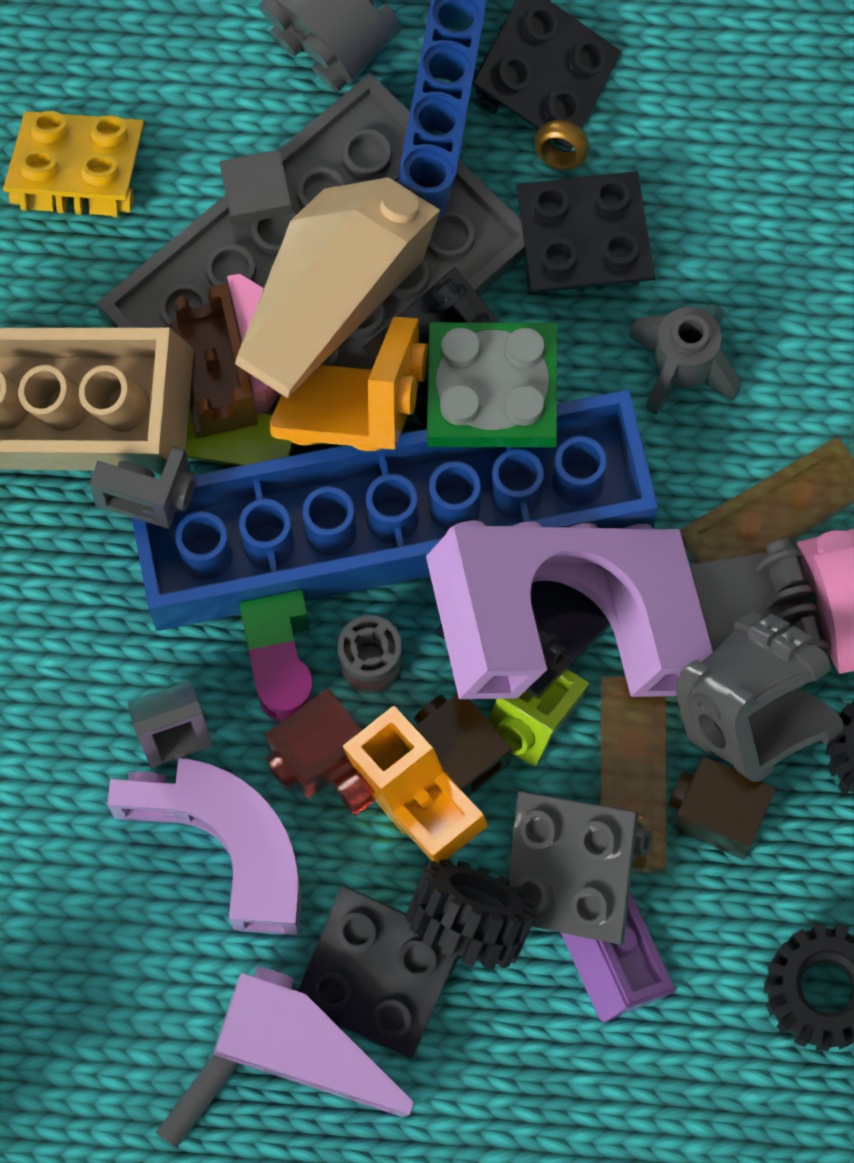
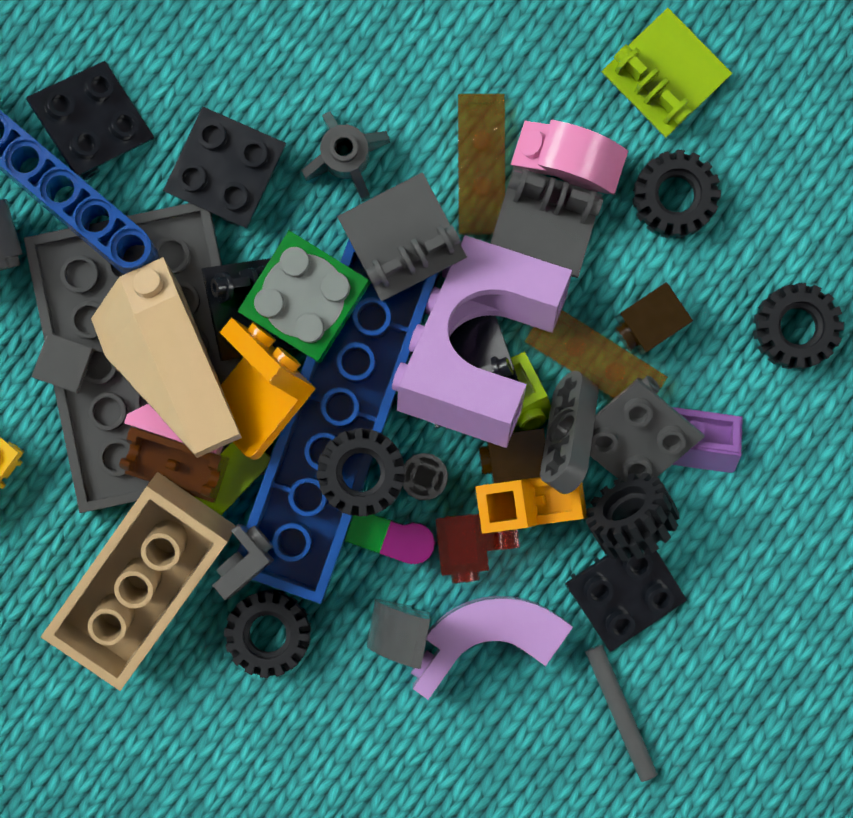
camera: 60 degrees left, 15 degrees up
(72, 552) = (240, 642): none -> black tyre
(294, 1039) = (639, 671): lavender slope -> none
(322, 521) = (332, 462): none -> black tyre
(525, 779) = (569, 432): none -> dark grey beam
(569, 132) = (157, 148): pearl gold piece -> none
(629, 449) = (402, 236): none -> dark grey hinge
(749, 699) = (606, 256): dark grey piece -> none

